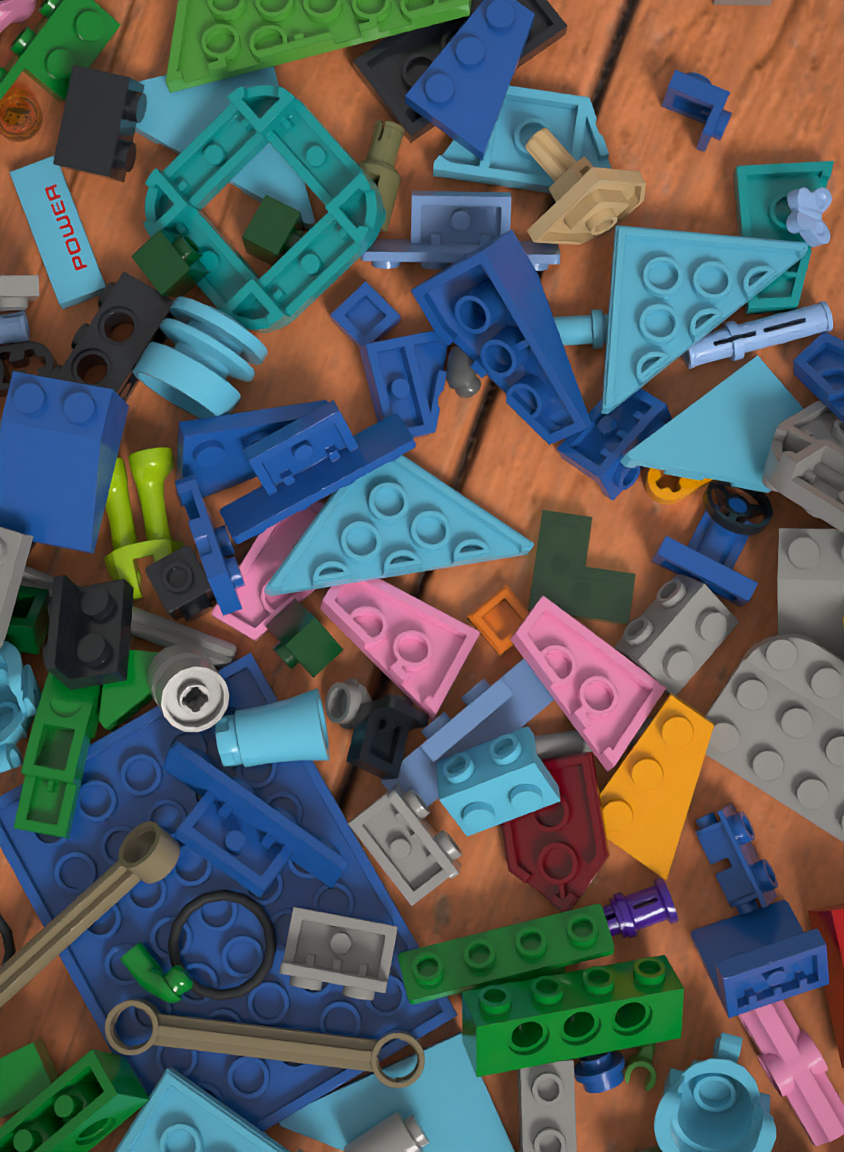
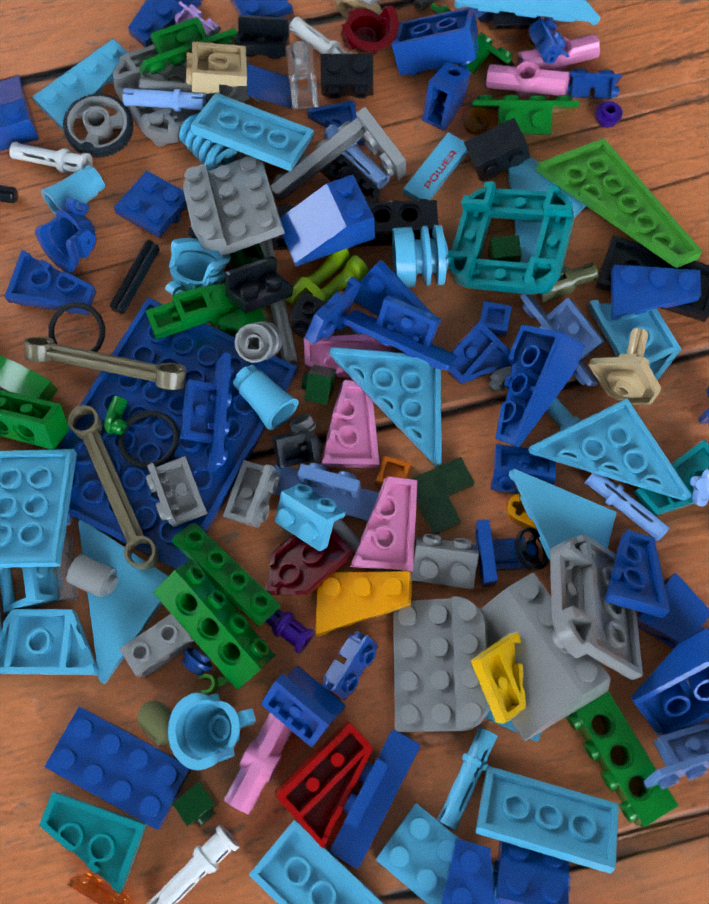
camera: 60 degrees right, 10 degrees down
(171, 263) = (455, 216): dark green plate -> none

